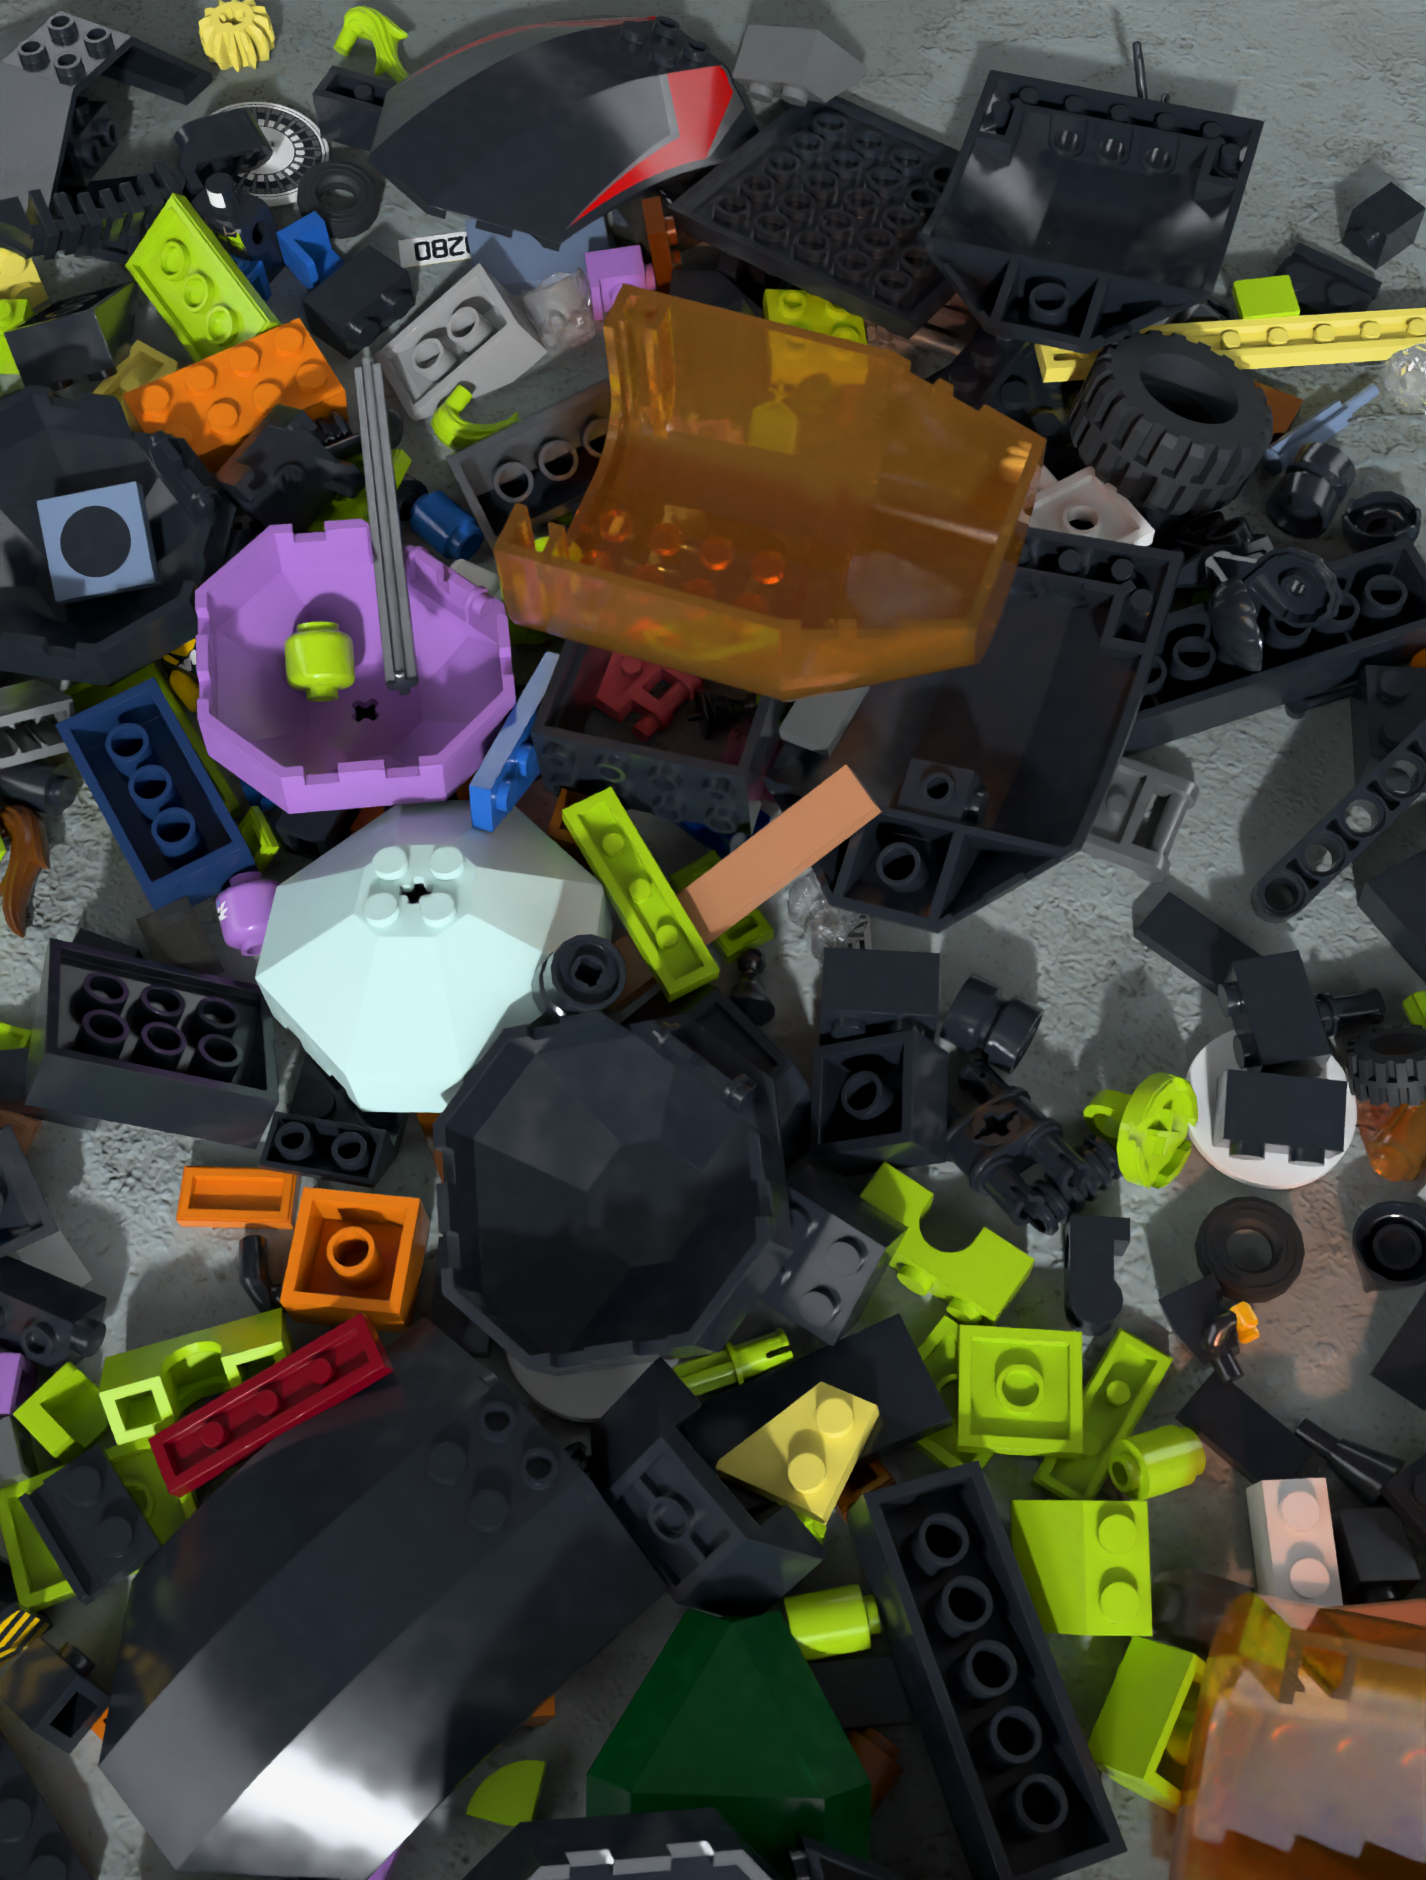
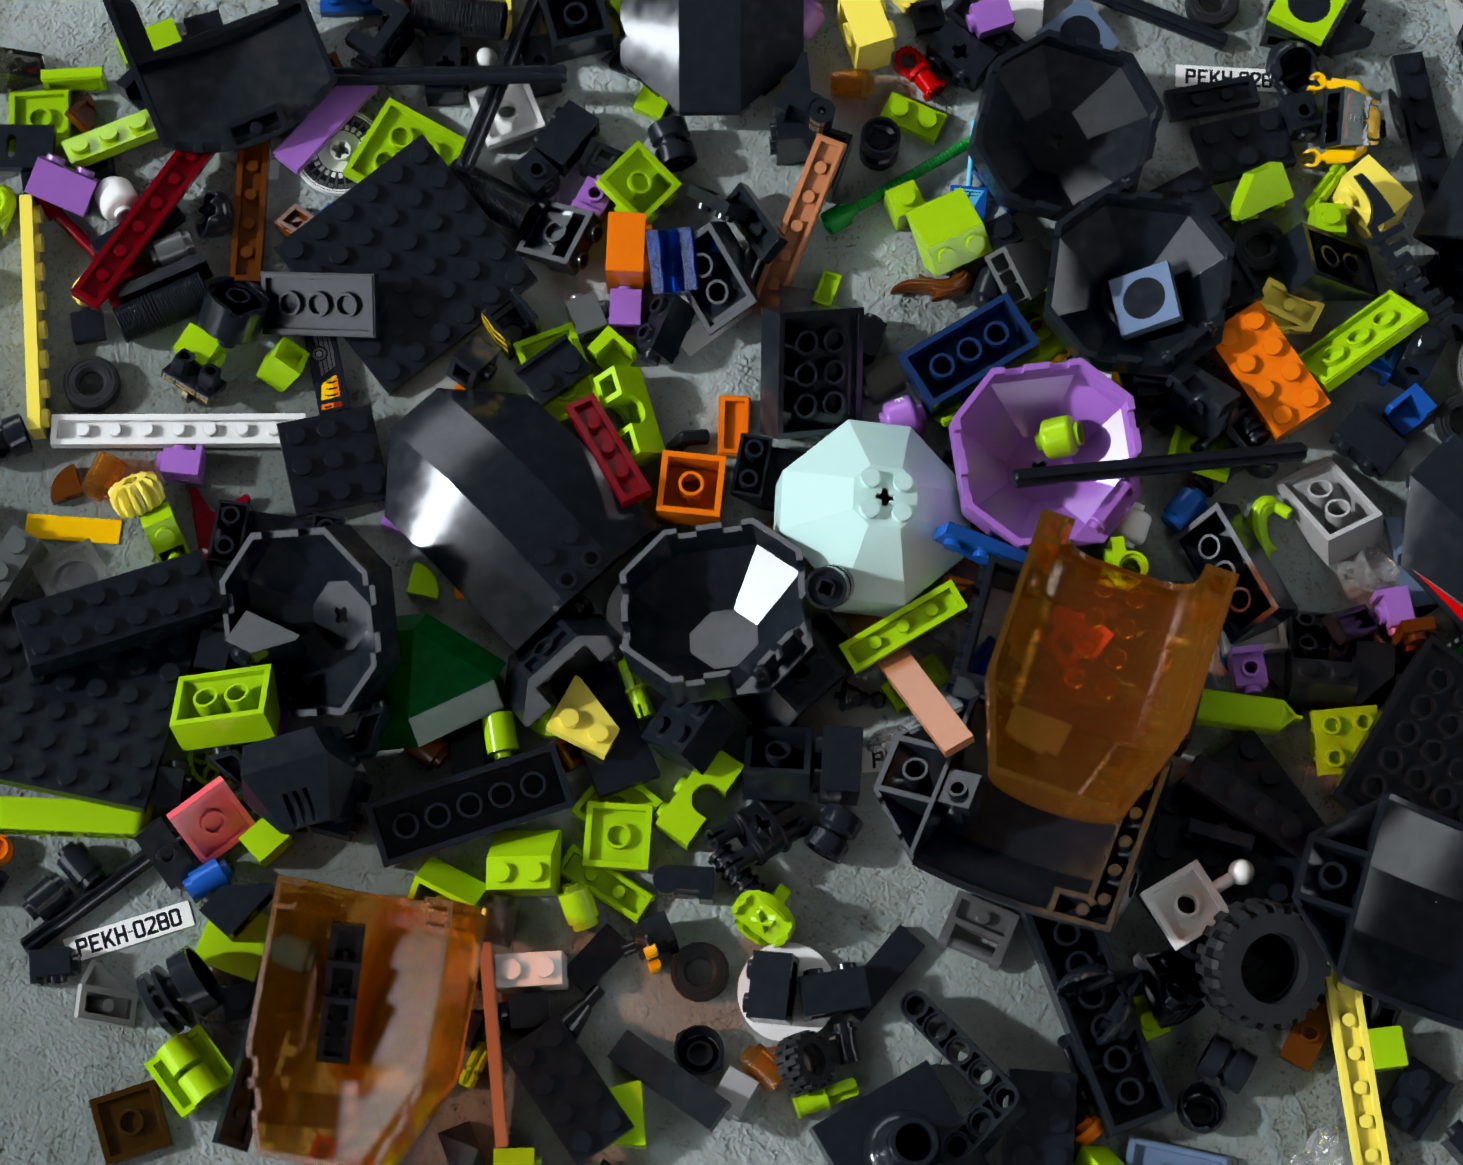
camera: 85 degrees right, 10 degrees up
(1316, 428) = (1286, 1078): sand blue axle -> none

